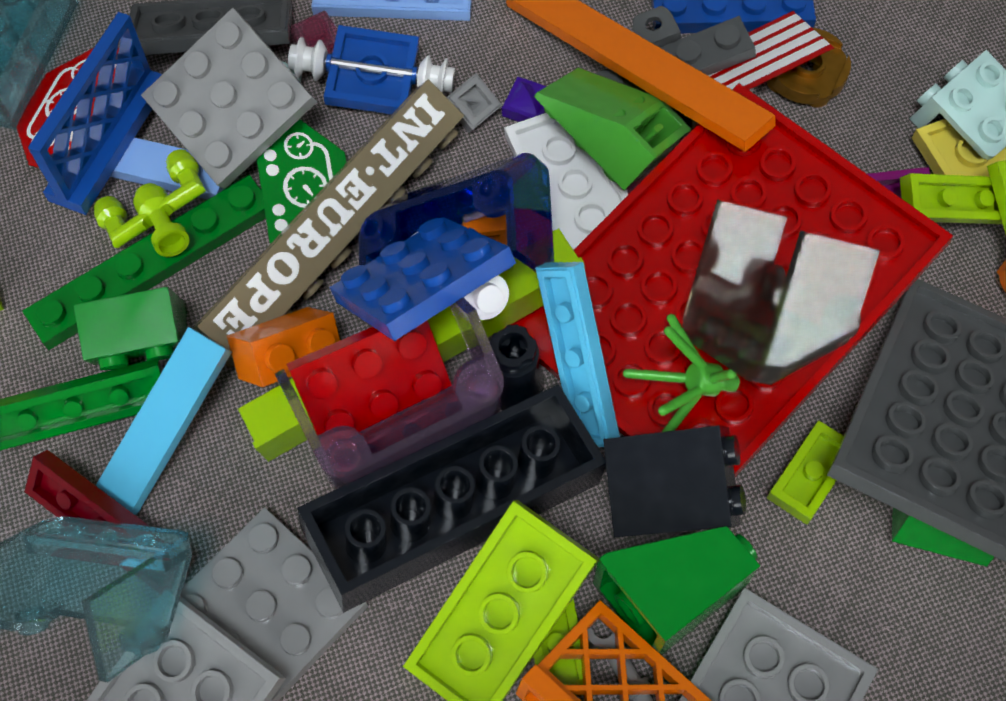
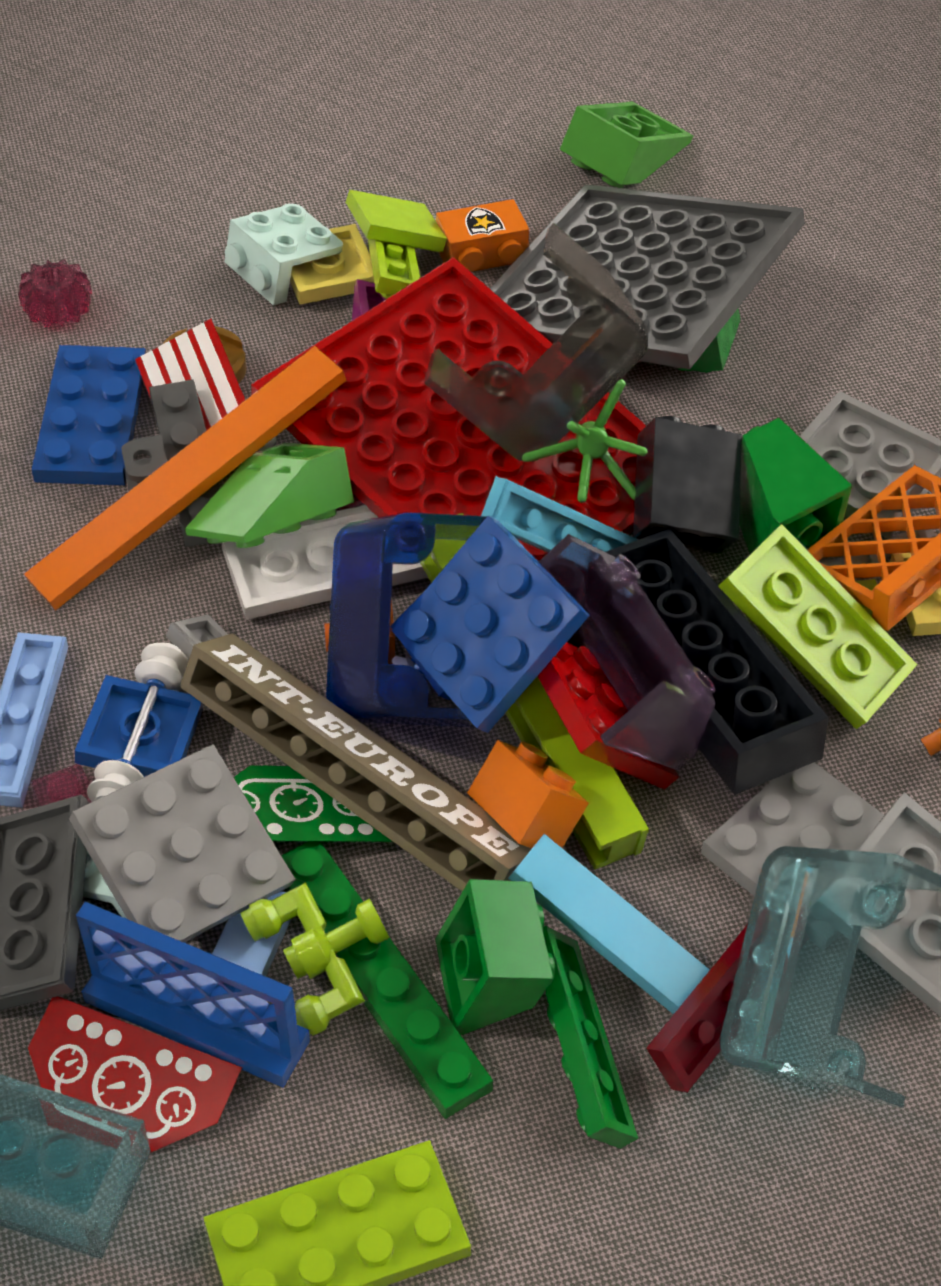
camera: 90 degrees left, 15 degrees down
(521, 101) = (204, 593): dark purple tile -> none
(805, 479) = (650, 402): lime plate -> none

